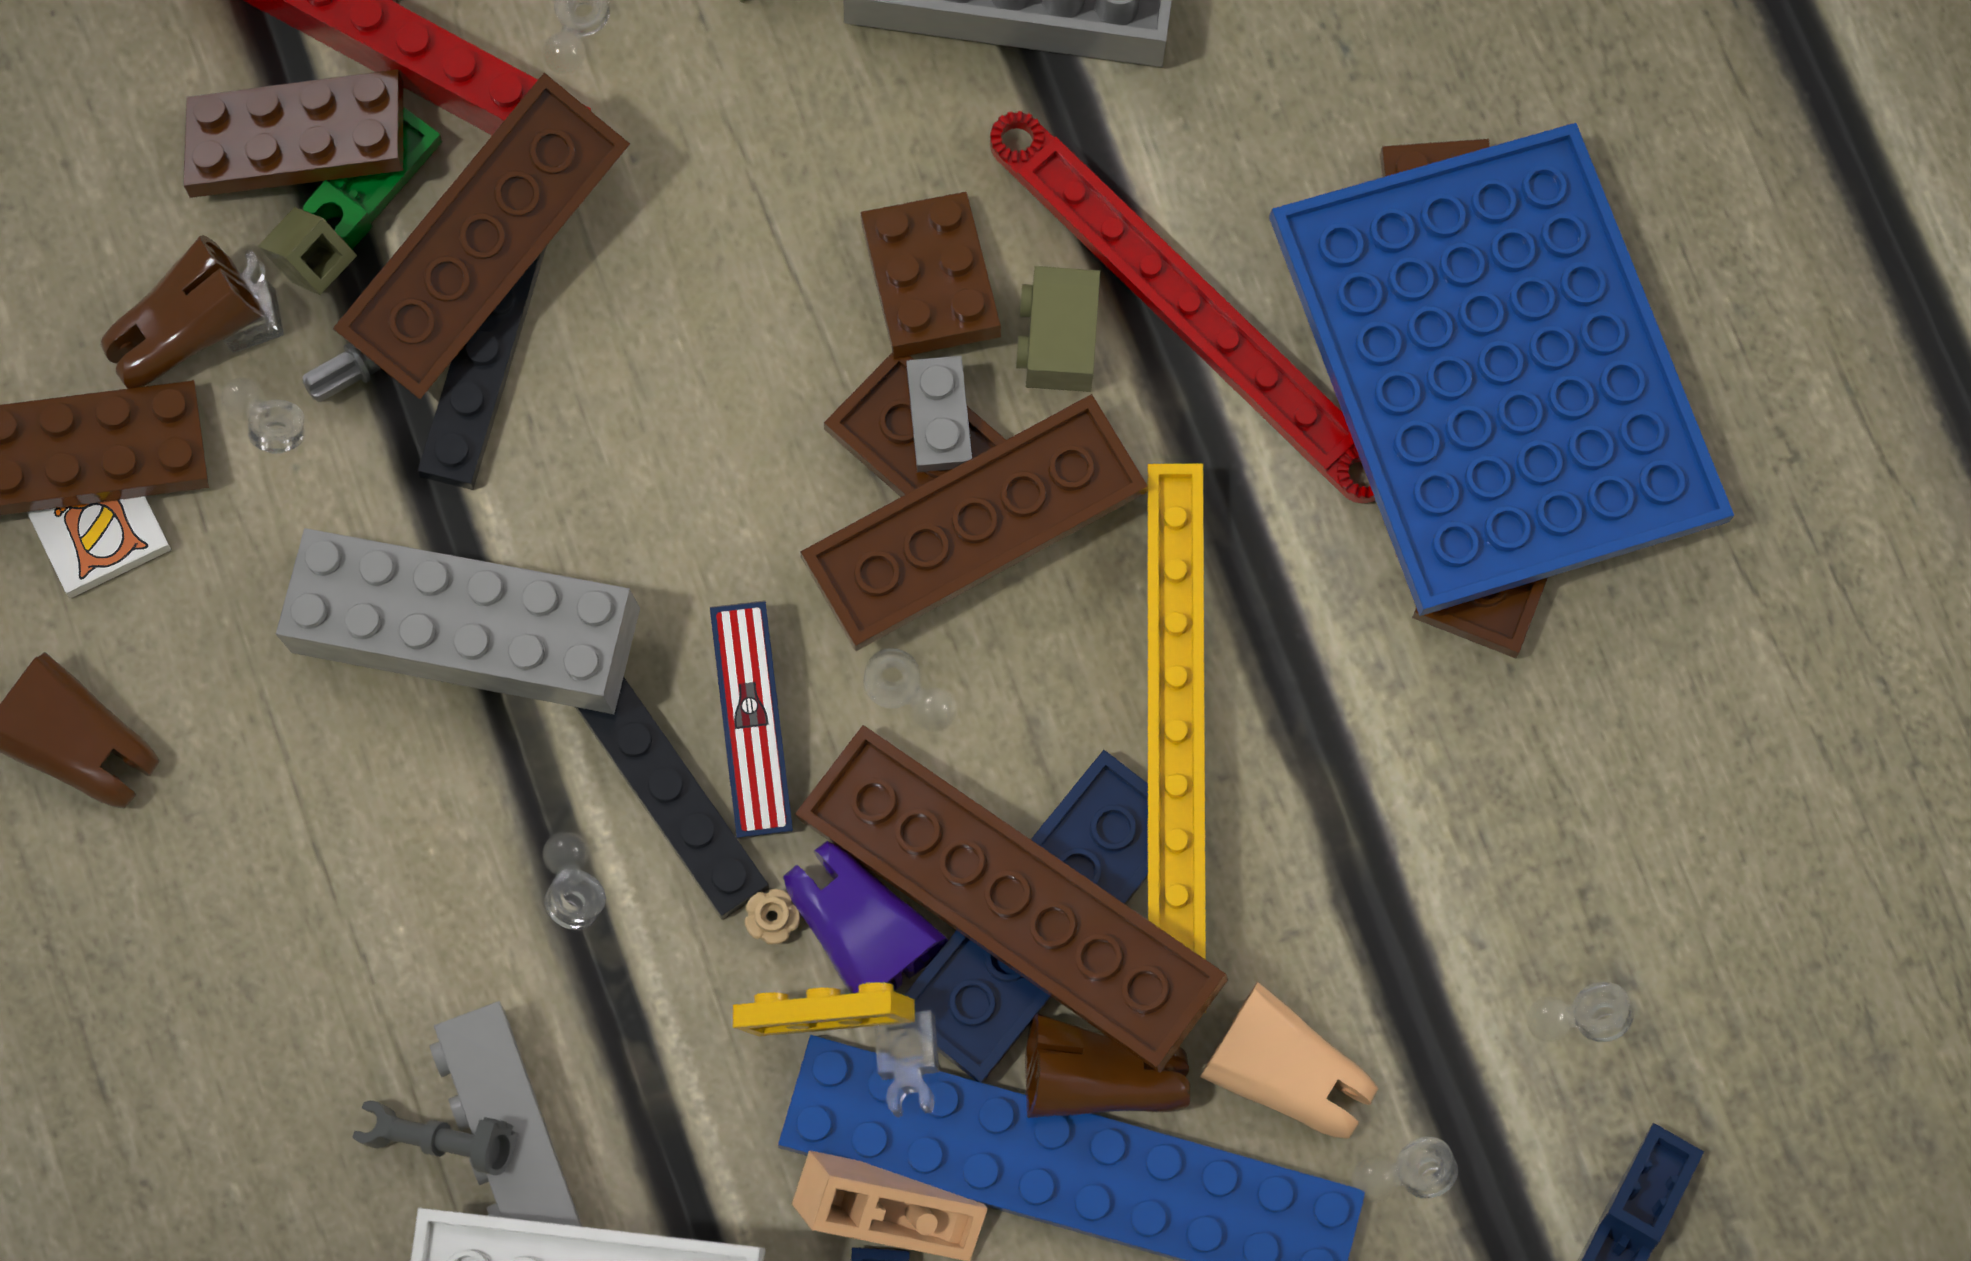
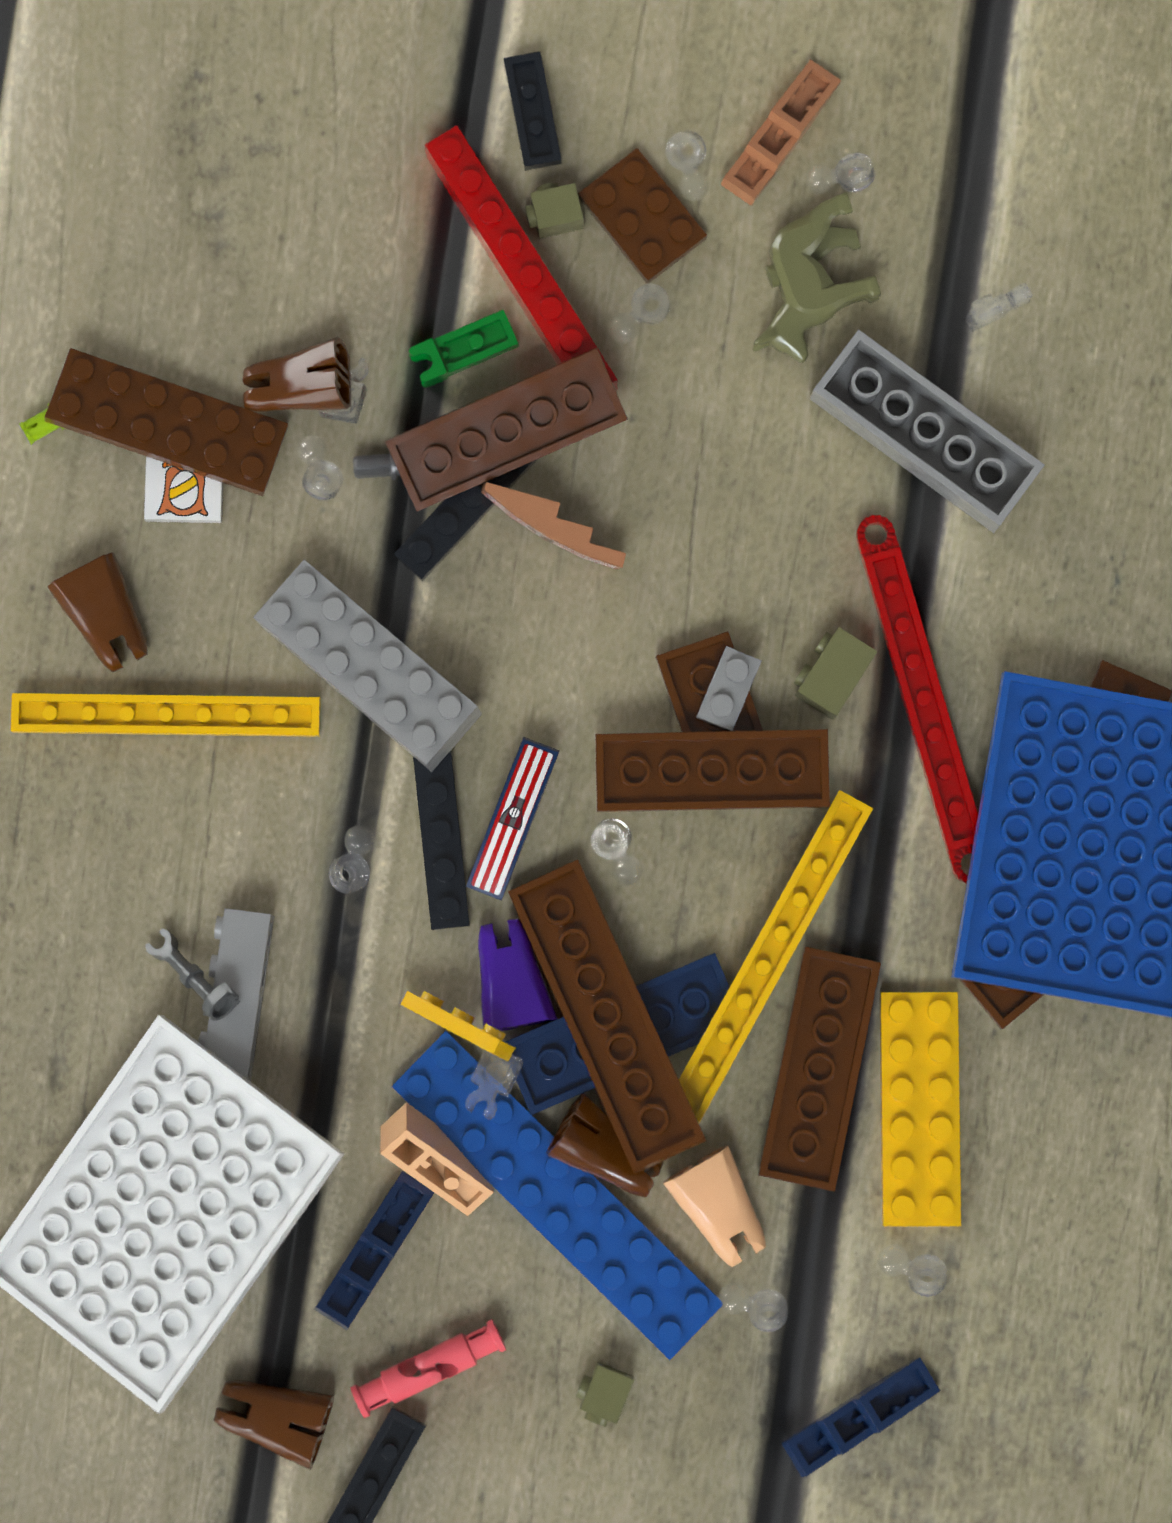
camera: 30 degrees right, 10 degrees up
(222, 826) = (165, 714): none -> yellow plate
(293, 133) = (428, 296): plate -> none
(307, 250) = (397, 378): olive brick -> none
(583, 327) = (541, 518): none -> nougat slope
(771, 931) = (450, 946): tan plate -> none
(930, 274) = (773, 595): reddish brown plate -> none
(1318, 827) = (819, 1069): none -> reddish brown plate
(1473, 811) = (920, 1109): none -> yellow plate

